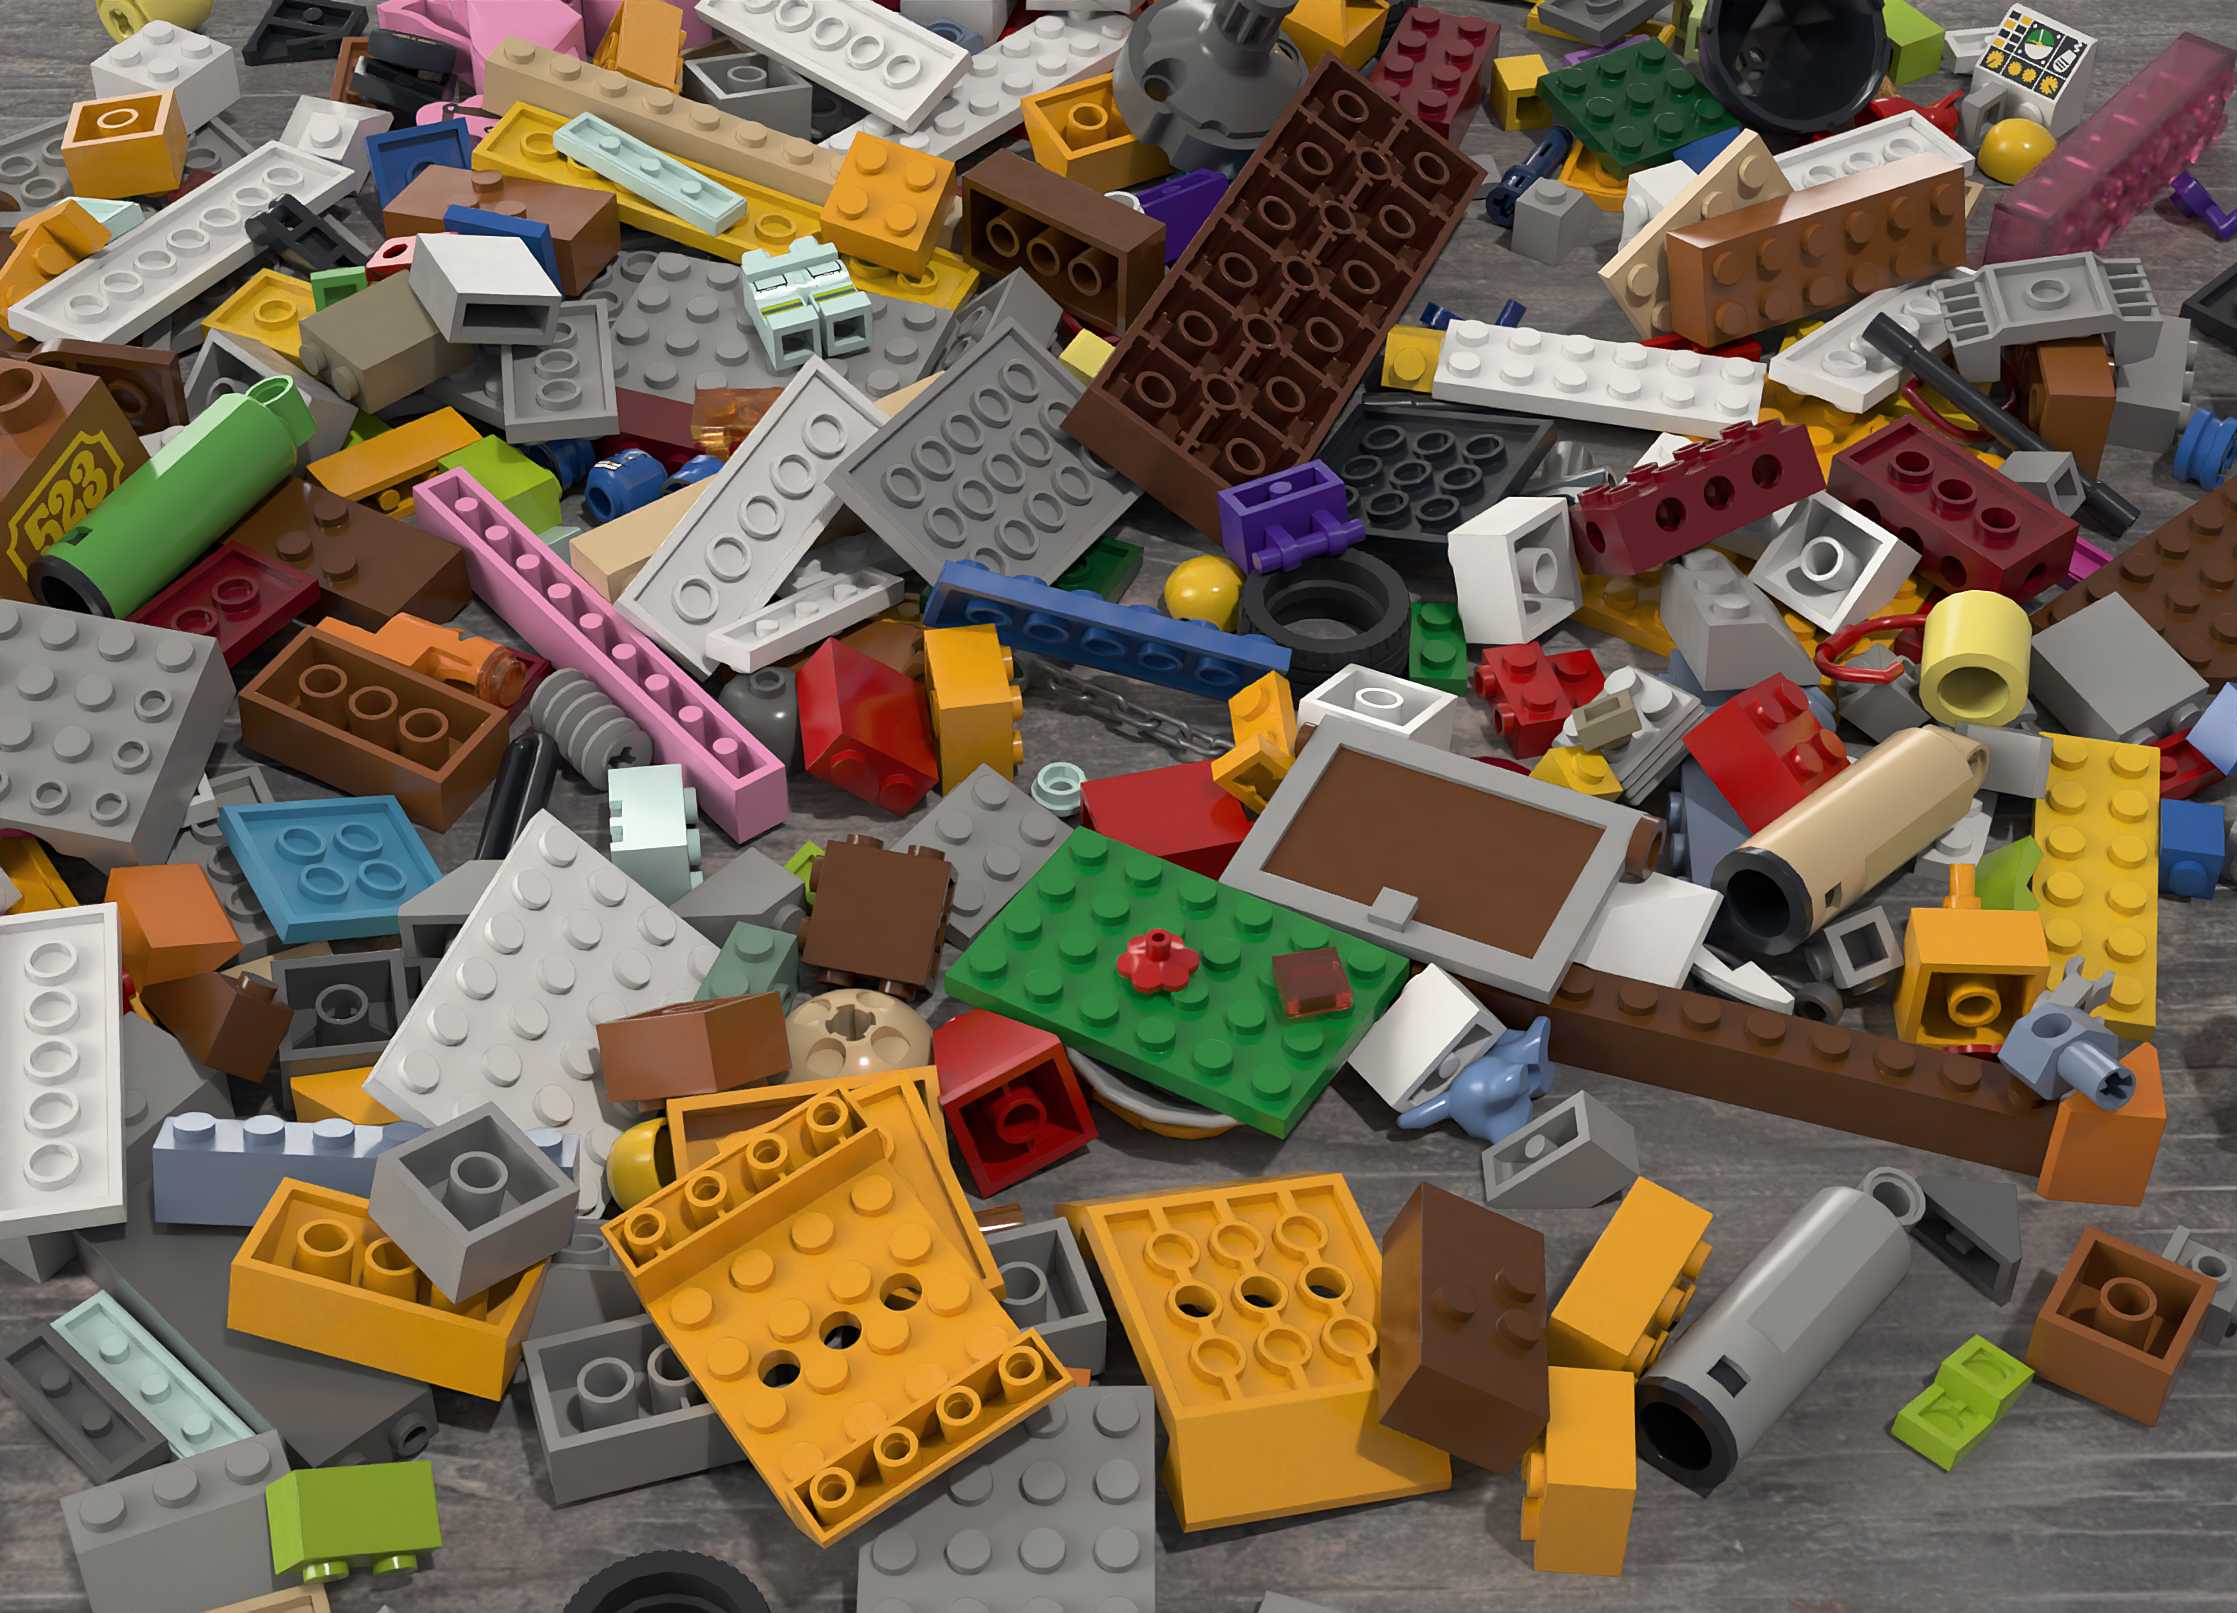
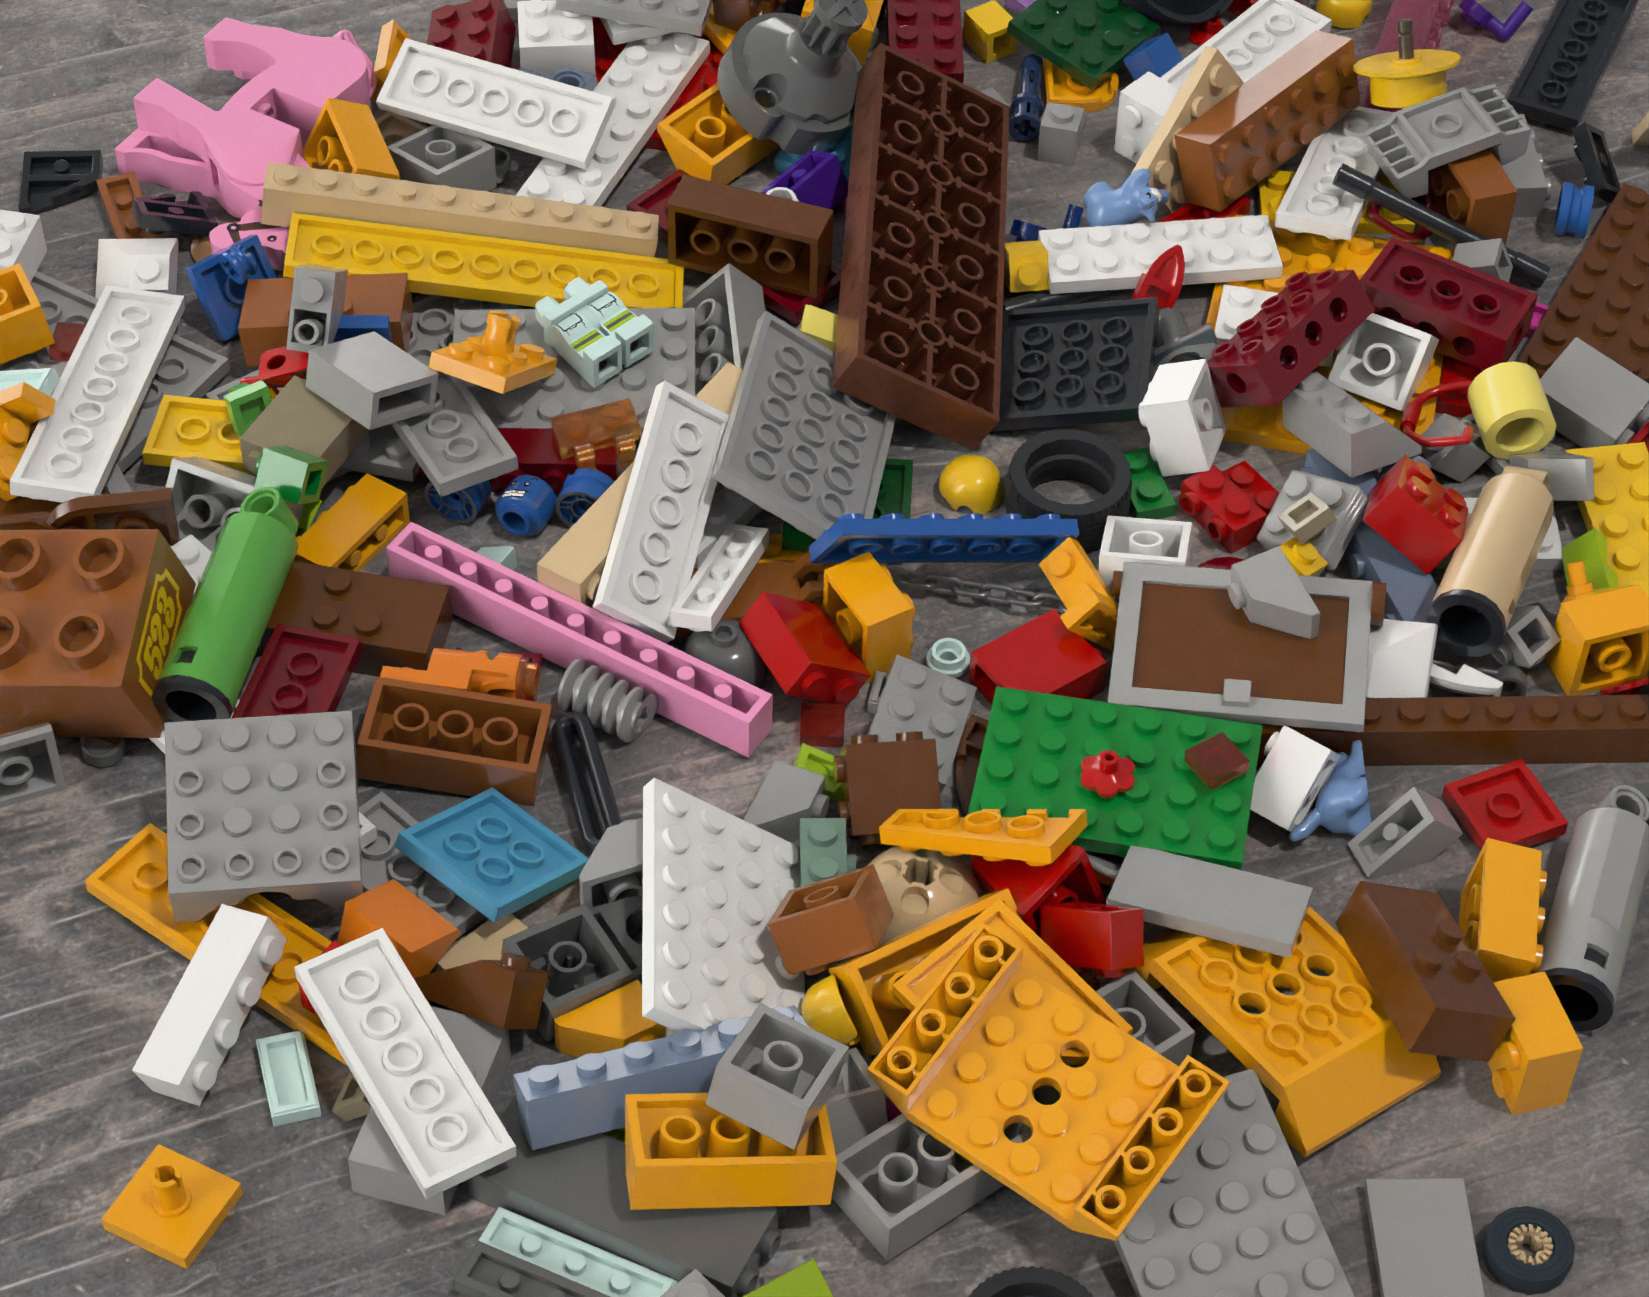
camera: 20 degrees left, 5 degrees up
(311, 243) = (195, 371): black plate -> none
(331, 372) = (292, 473): none -> green brick
(411, 50) = (165, 182): black bush -> none
(422, 142) = (238, 264): none -> blue bush
(458, 187) = (315, 306): none -> light grey slope
(512, 479) = (438, 515): lime brick -> none
(650, 173) = (421, 250): light aqua tile -> none
(651, 300) = (494, 357): none -> light orange plate
(651, 829) = (695, 761): light aqua wedge -> none
(854, 817) = (822, 724): none -> clear red tile
(889, 204) = (613, 235): light orange brick -> none
(953, 993) = (985, 833): none -> light orange wing
(1025, 1160) = (1094, 936): none -> red brick
(1212, 1156) = (1212, 900): none -> light grey tile
(1287, 519) = (1019, 420): dark purple brick -> none
(1494, 793) = (1273, 594): none -> light grey slope
(1584, 406) = (1163, 278): none -> red plate
(1585, 310) = (1126, 204): none -> medium blue animal
(1727, 1161) = (1505, 806): none -> red plate
(2025, 226) = (1408, 74): none -> yellow piece

